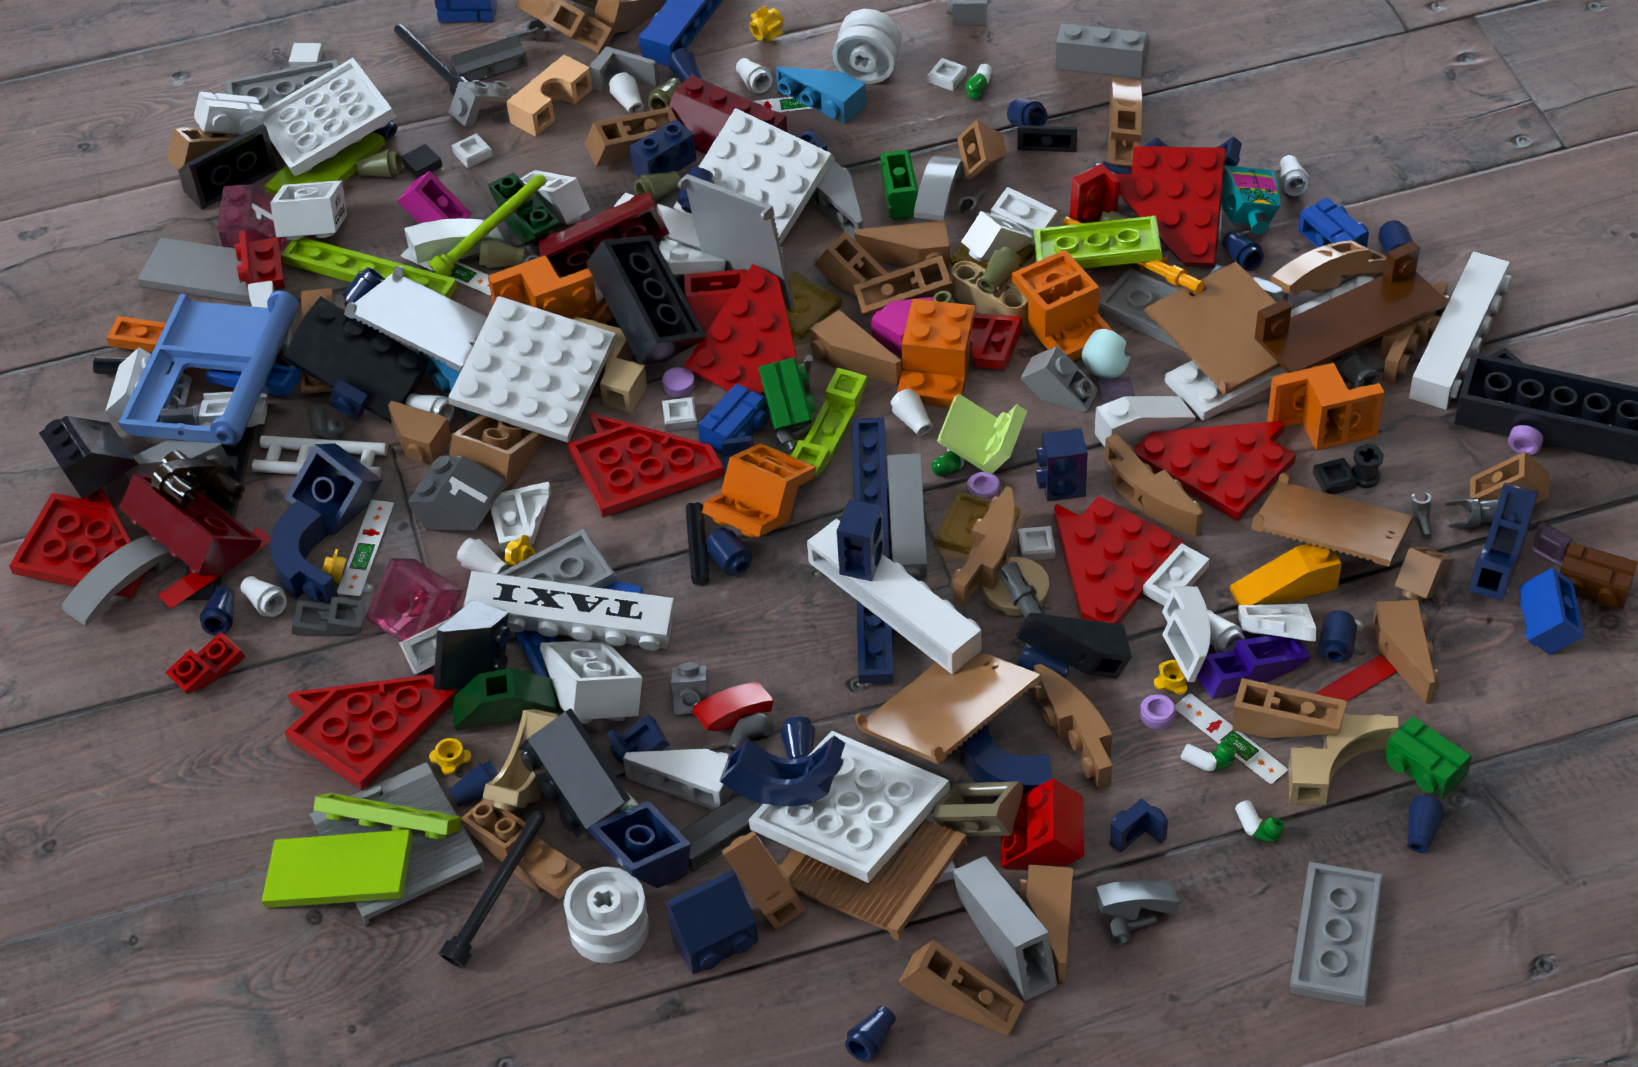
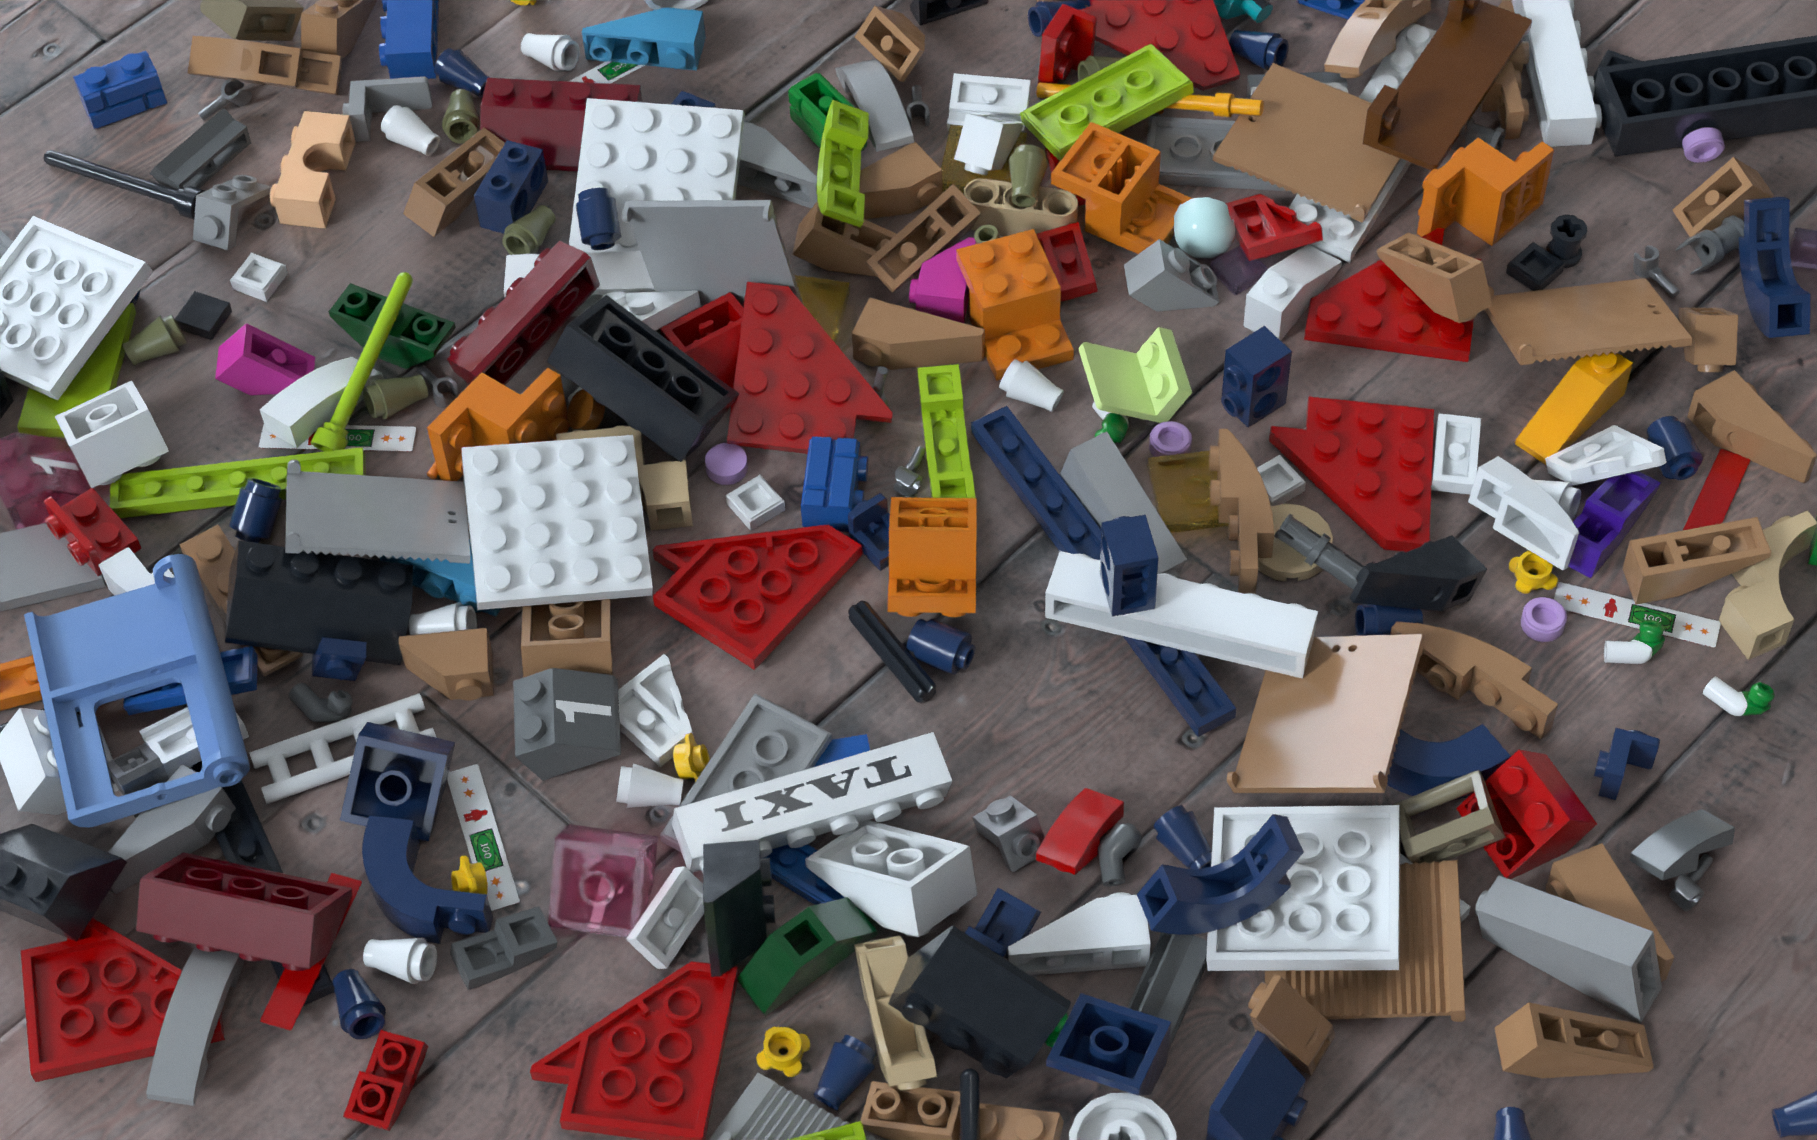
camera: 30 degrees left, 5 degrees up
(186, 475) = (205, 847): dark brown connector -> none
(561, 196) = (433, 287): white slope -> none
(786, 393) = (882, 424): green brick -> none
(877, 214) = (840, 164): none -> lime slope
(1151, 493) = (1366, 371): medium nougat slope -> none
(1152, 372) = (1268, 228): none -> red wing
(1244, 450) = (1441, 277): none -> medium nougat slope

